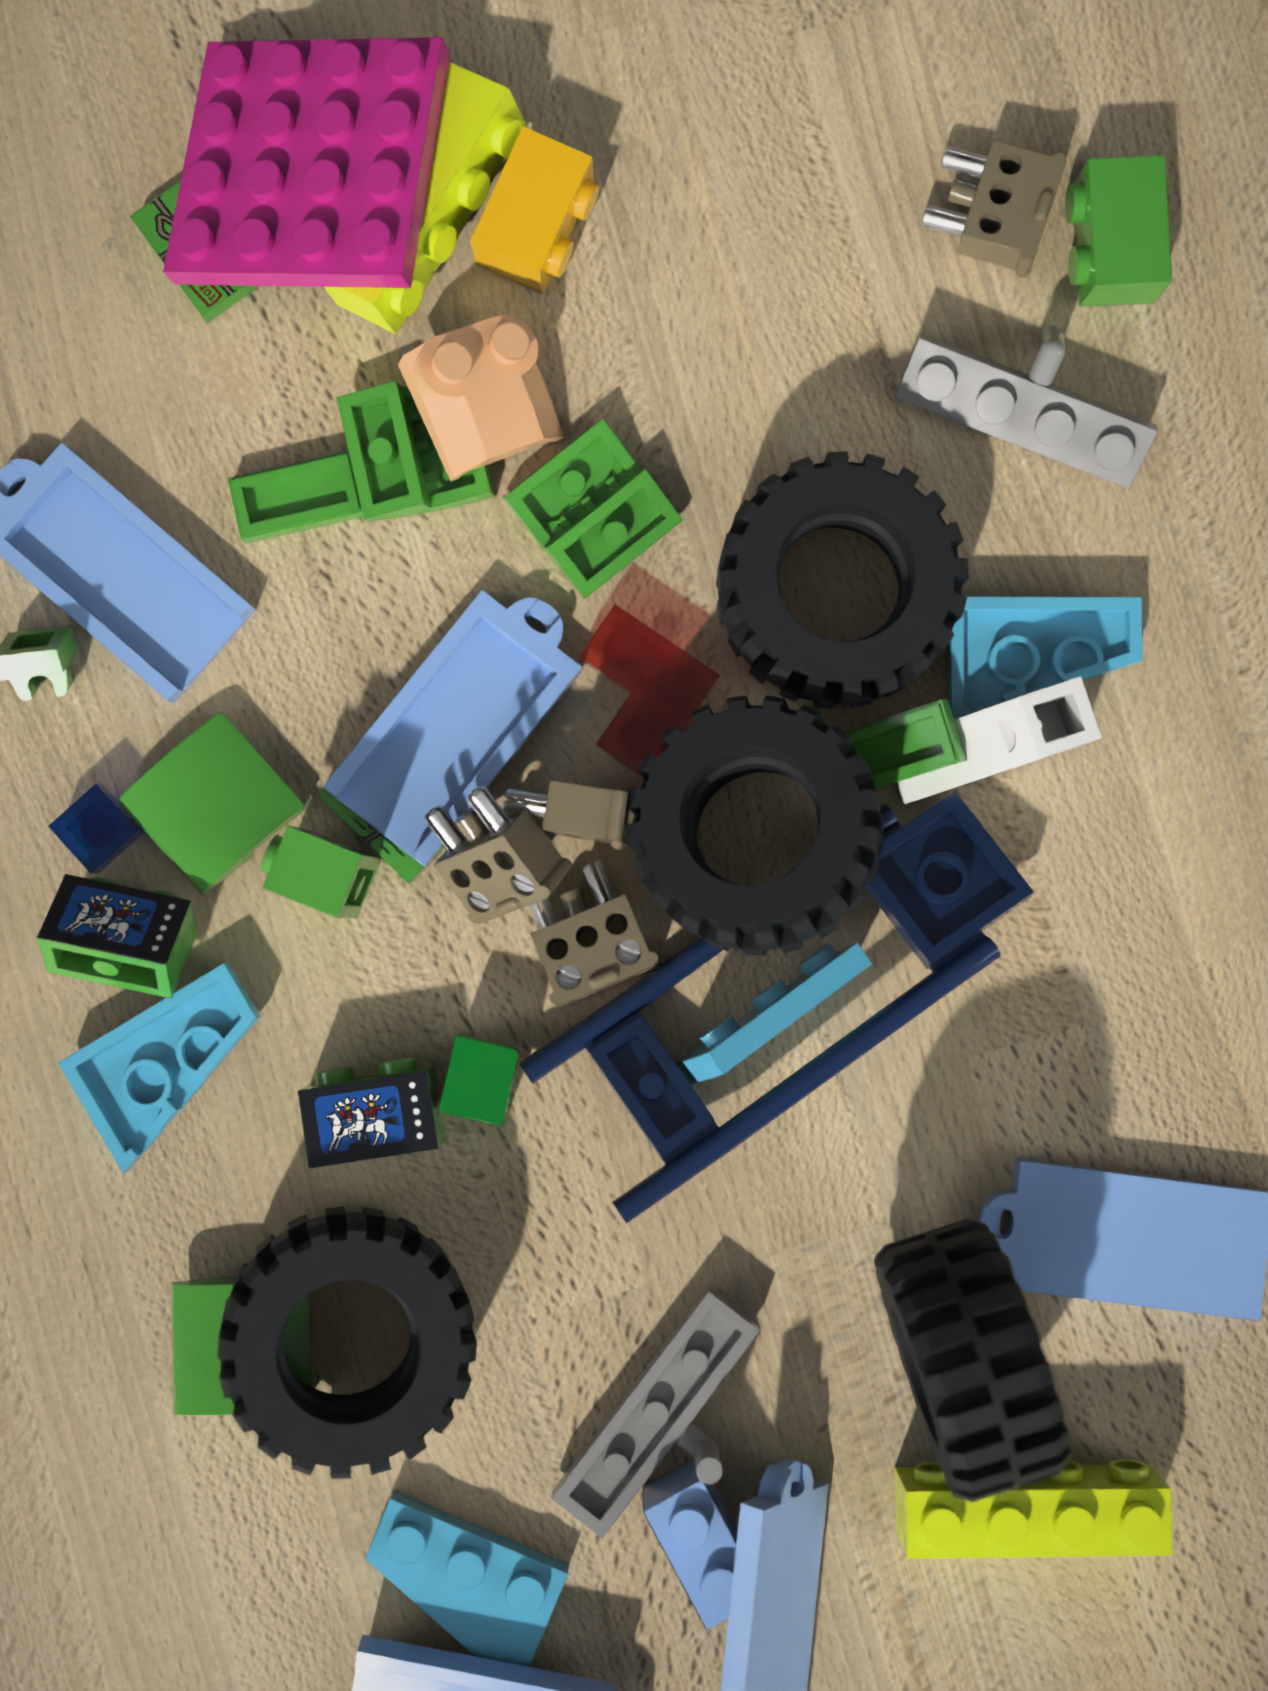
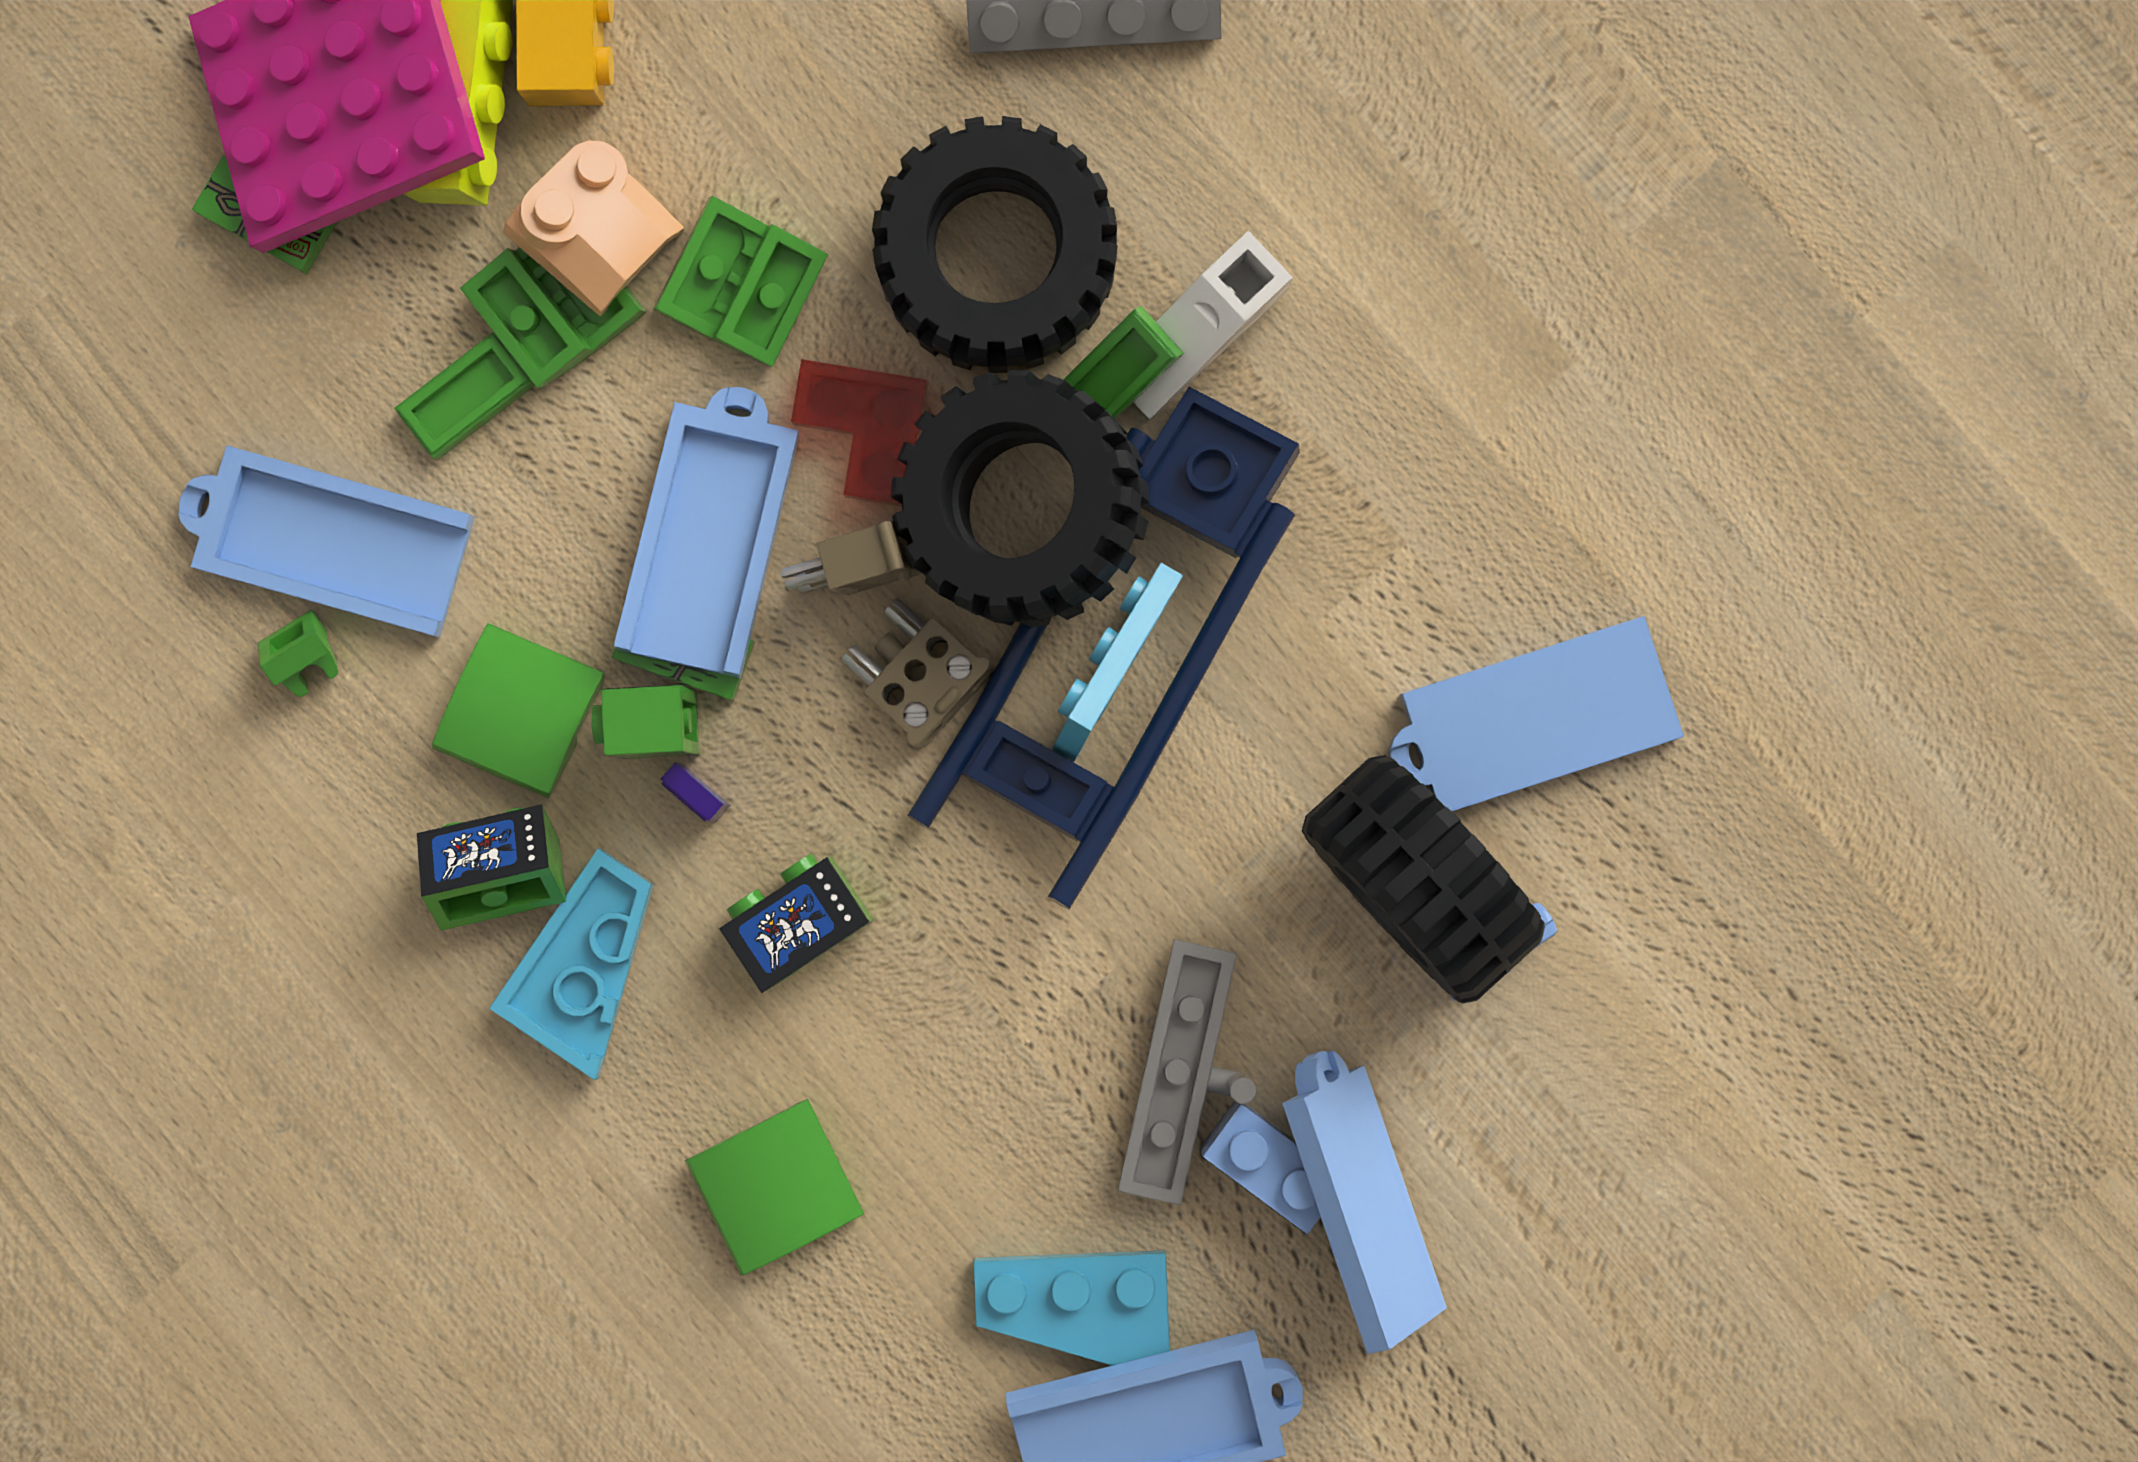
camera: 25 degrees left, 0 degrees up
(96, 829) = (424, 782): clear blue plate -> none
(335, 953) = (694, 793): none -> dark purple tile
(362, 1425) = (954, 1146): black tyre -> none
(479, 1080) = (878, 844): green panel -> none
(495, 864) = (804, 642): dark tan piece -> none
(1032, 643) = (1191, 221): medium azure wing -> none
(1079, 1513) = (1555, 998): neon yellow brick -> none

